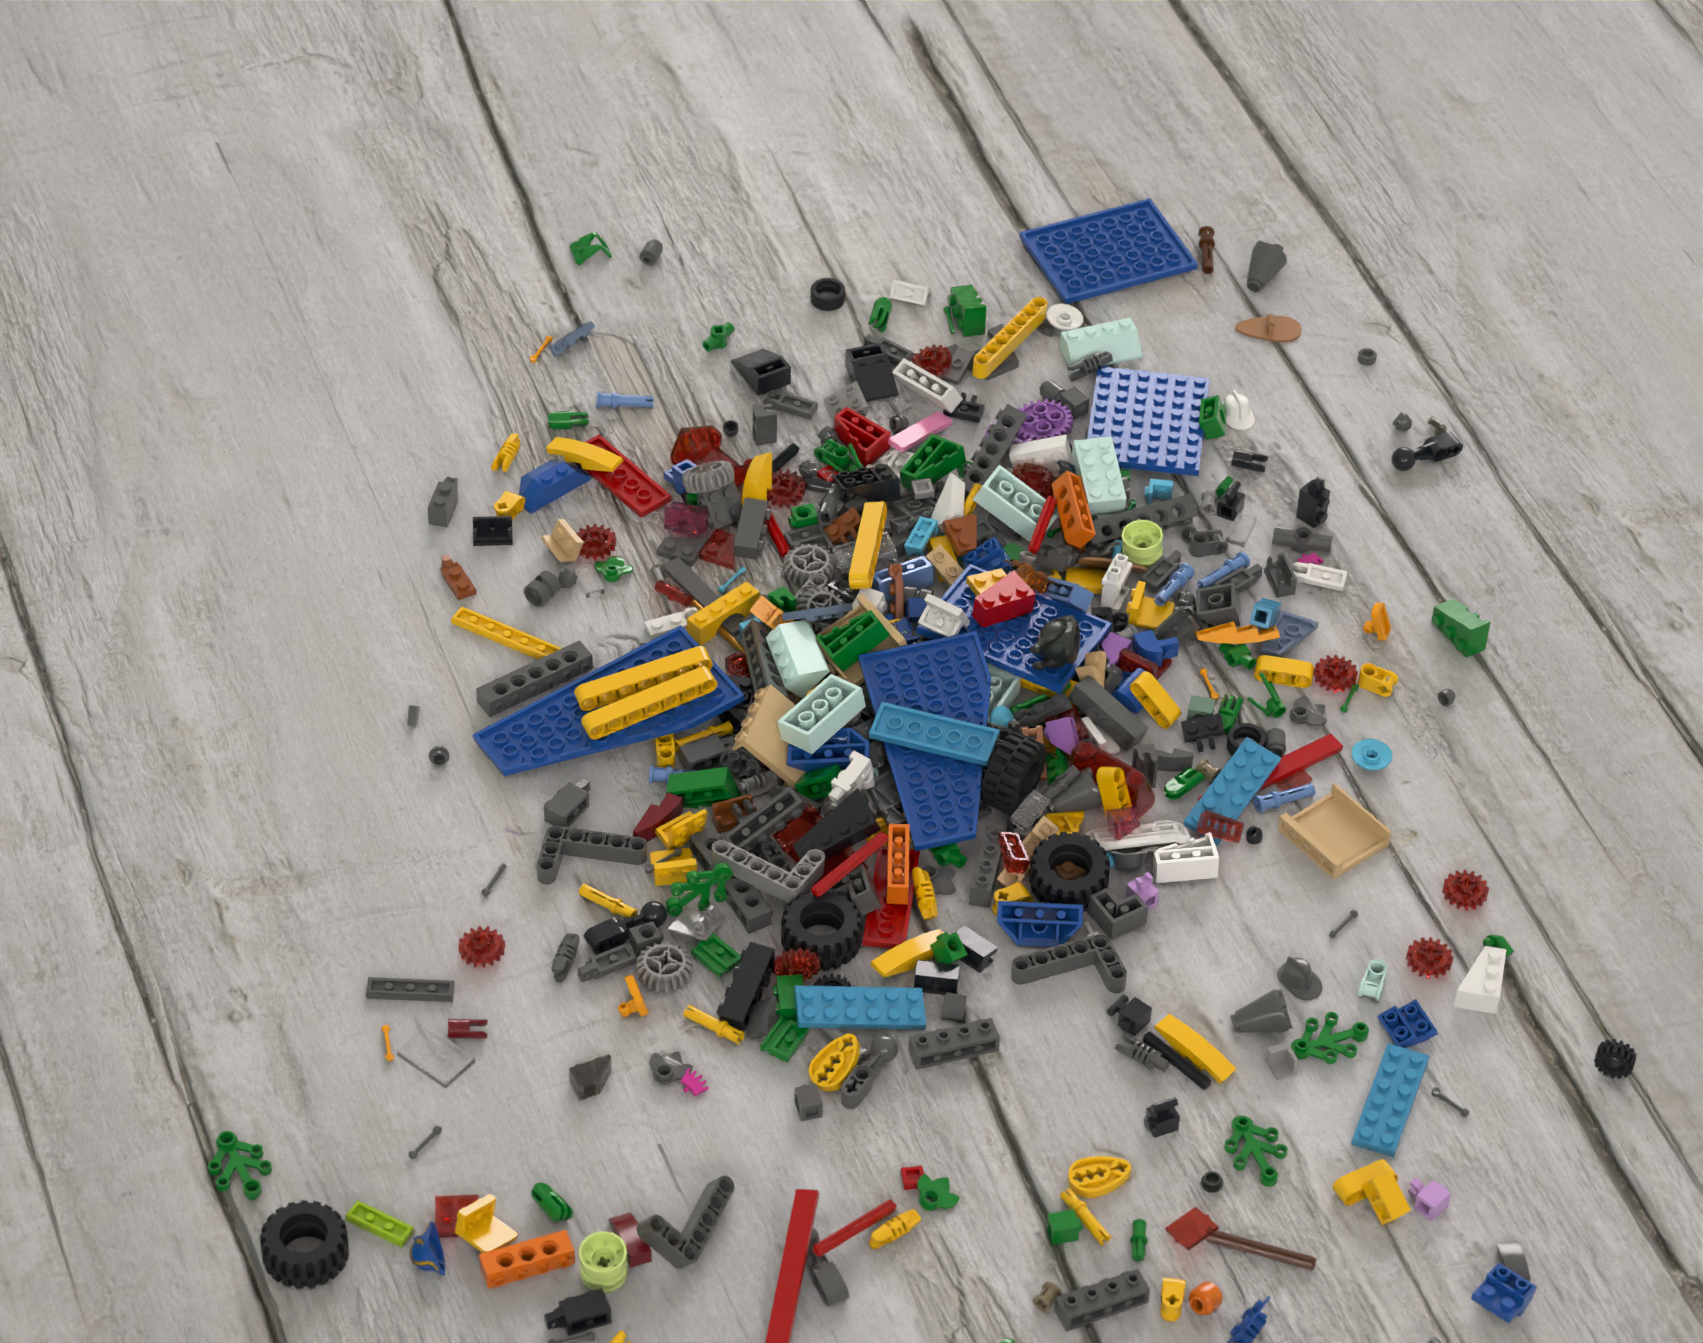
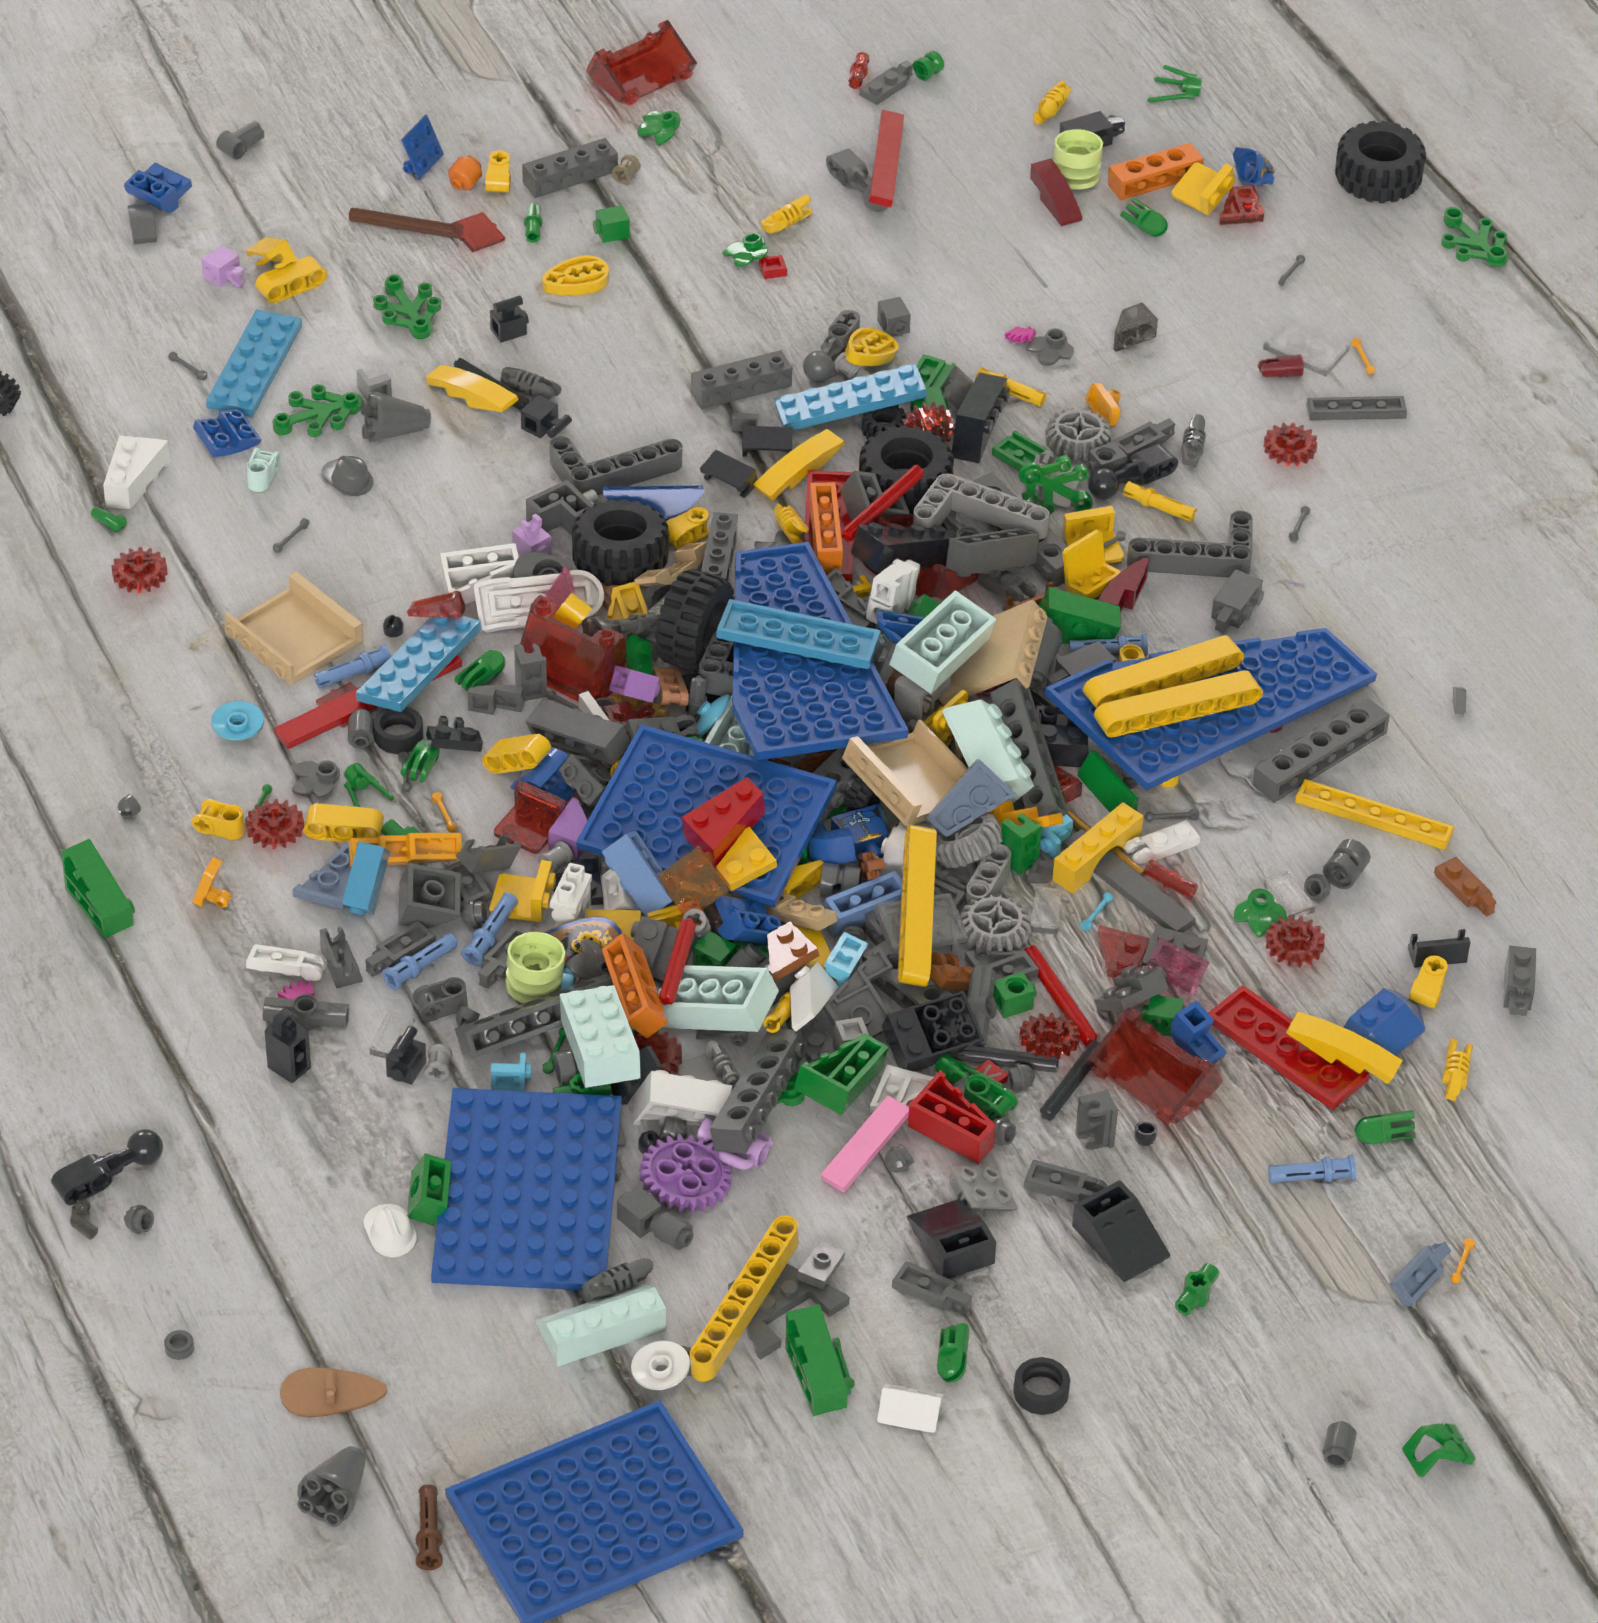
camera: 175 degrees right, 0 degrees up
(379, 1223) = (1313, 201): lime tile -> none
(439, 756) = (1410, 649): dark grey plate -> none
(563, 542) = (1339, 930): tan bracket -> none
(686, 1247) = (993, 189): dark grey beam -> none
(708, 477) = (1165, 1007): light grey gear -> none
(751, 528) = (1082, 963): dark grey brick -> none
(758, 478) = (1088, 1017): yellow slope -> none
(853, 639) = (919, 746): green wedge -> none
(854, 1228) = (828, 205): red axle -> none
(927, 385) = (864, 1199): white brick -> none
(933, 359) = (862, 1265): clear red gear -> none
(942, 617) = (799, 775): white bracket -> none
(948, 948) = (758, 457): green brick -> none
(967, 410) = (804, 1192): black hinge -> none
(1014, 853) = (686, 541): clear red slope -> none
(1033, 475) = (695, 1043): clear red gear -> none
(1057, 643) = (648, 753): pearl dark grey piece -> none
(1086, 1216) = (595, 242): yellow pin -> none
(1094, 666) = (601, 761): tan slope -> none
(1148, 647) = (520, 822): blue brick -> none
(1201, 706) = (456, 763): sand green panel -> none
(1207, 767) = (448, 690): dark tan bush -> none
(1212, 1182) = (455, 275): pearl dark grey plate -> none
(1222, 487) = (417, 1084): green tile -> none
(1244, 460) = (377, 1137): black hinge -> none
(1429, 957) = (193, 494): clear red gear -> none

